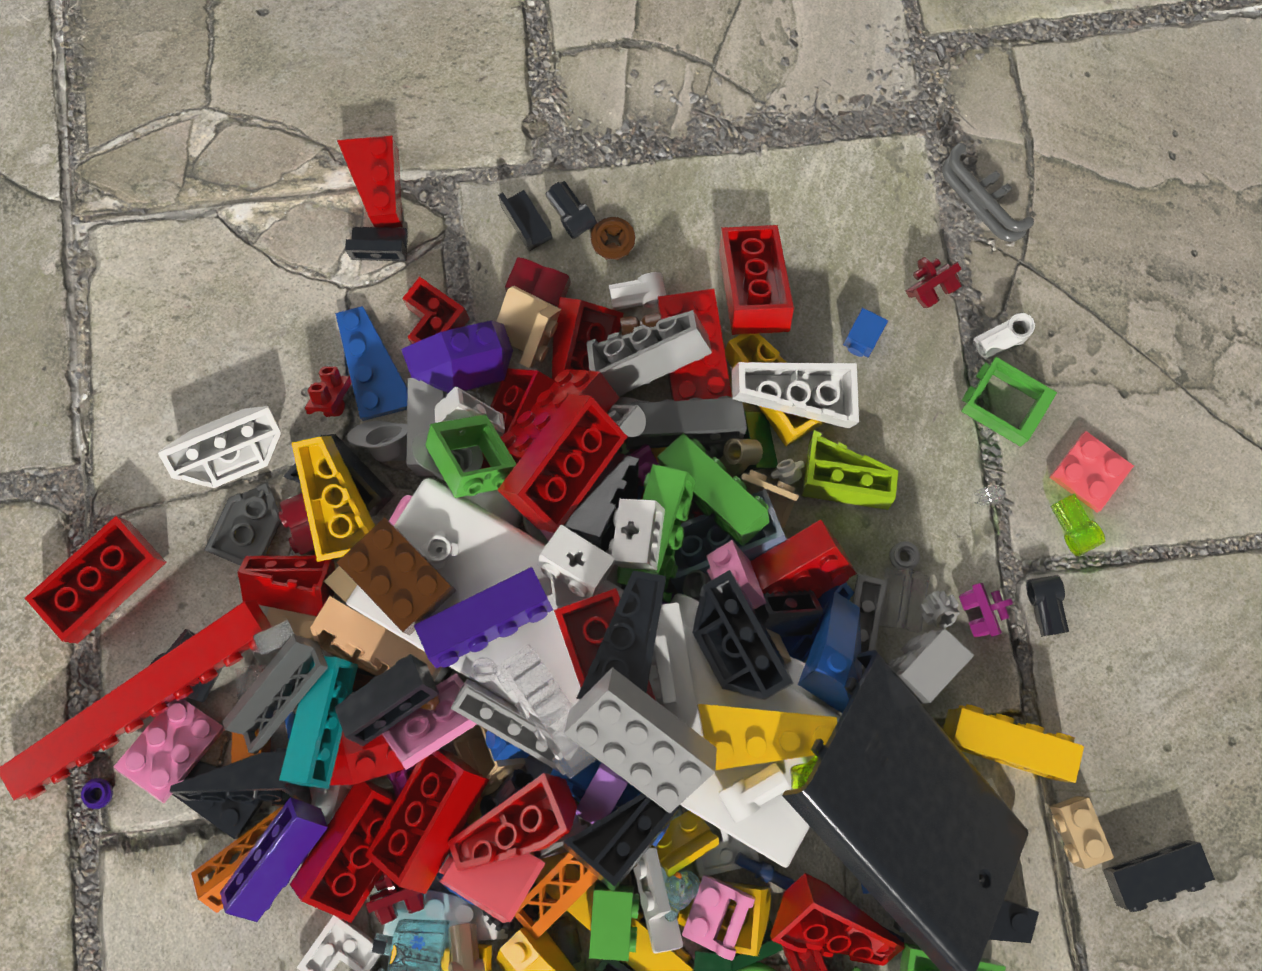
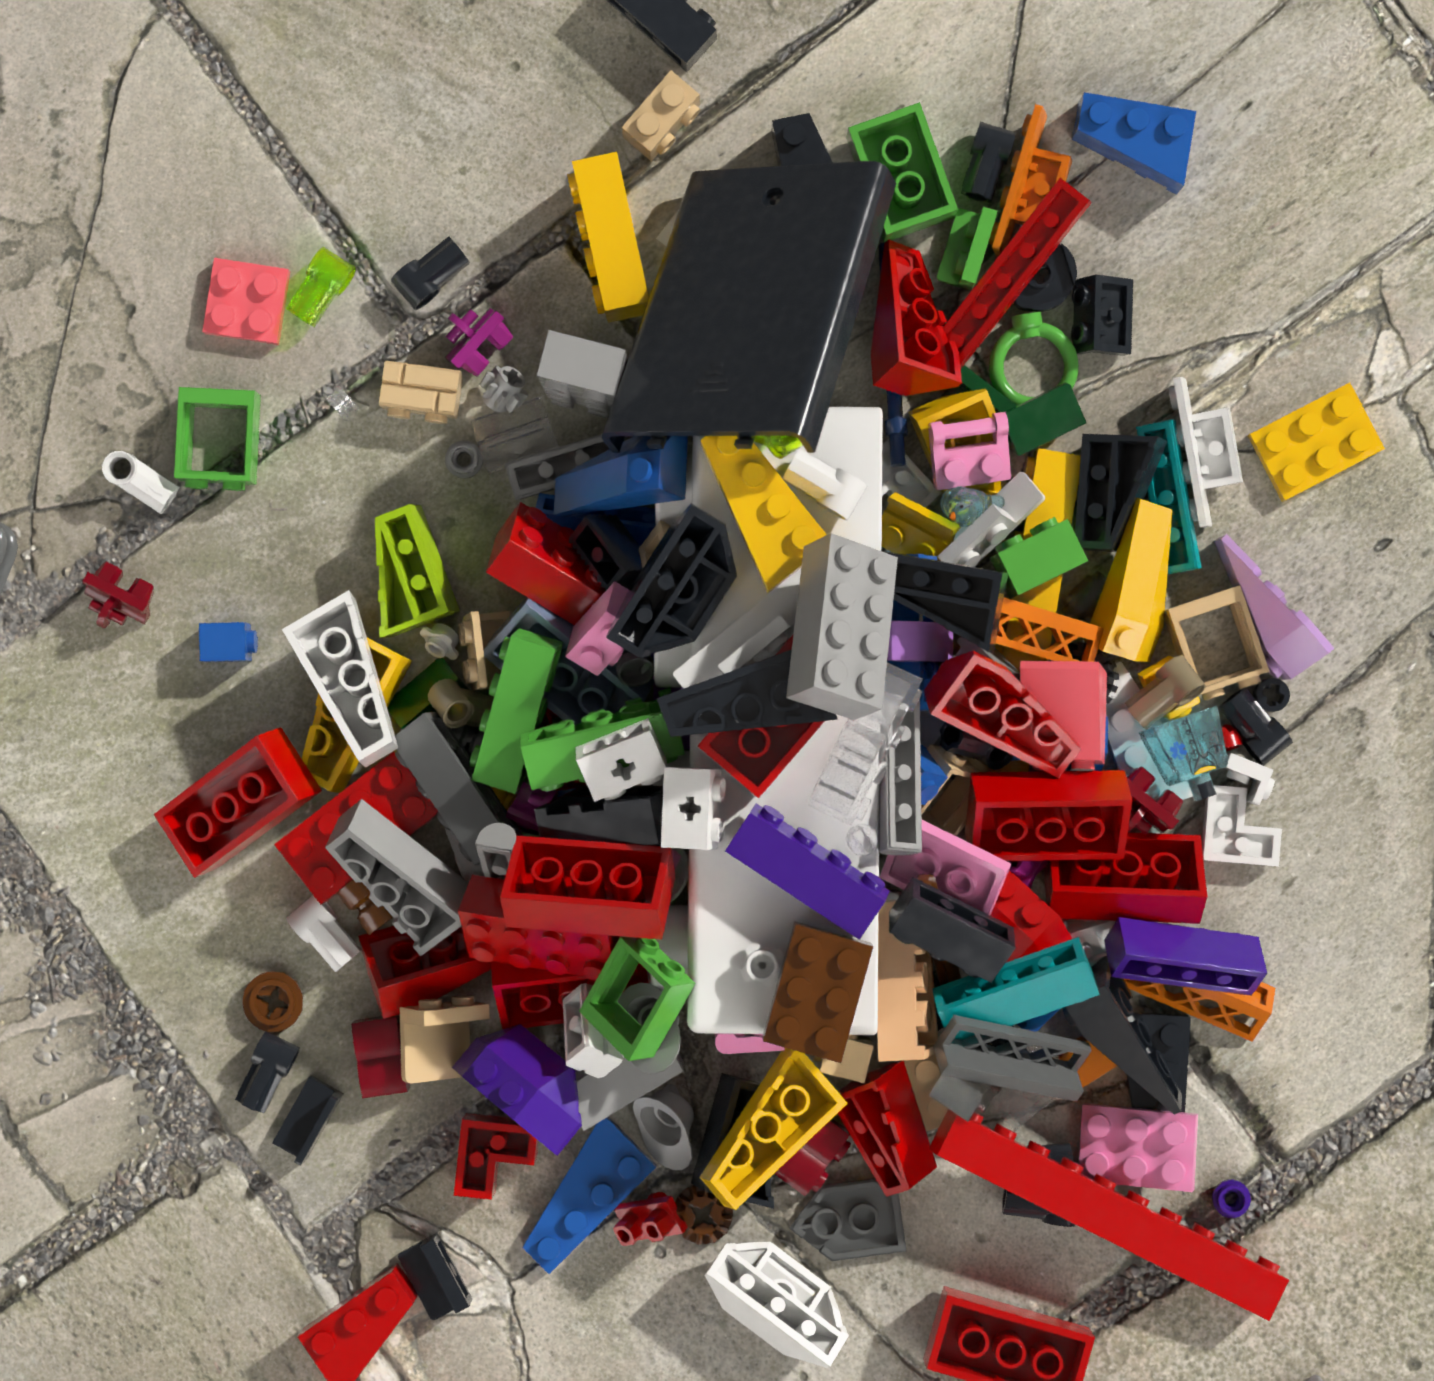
camera: 120 degrees left, 10 degrees up
(317, 419) = (703, 1232): none -> reddish brown gear
(968, 553) = (420, 391): none -> tan brick

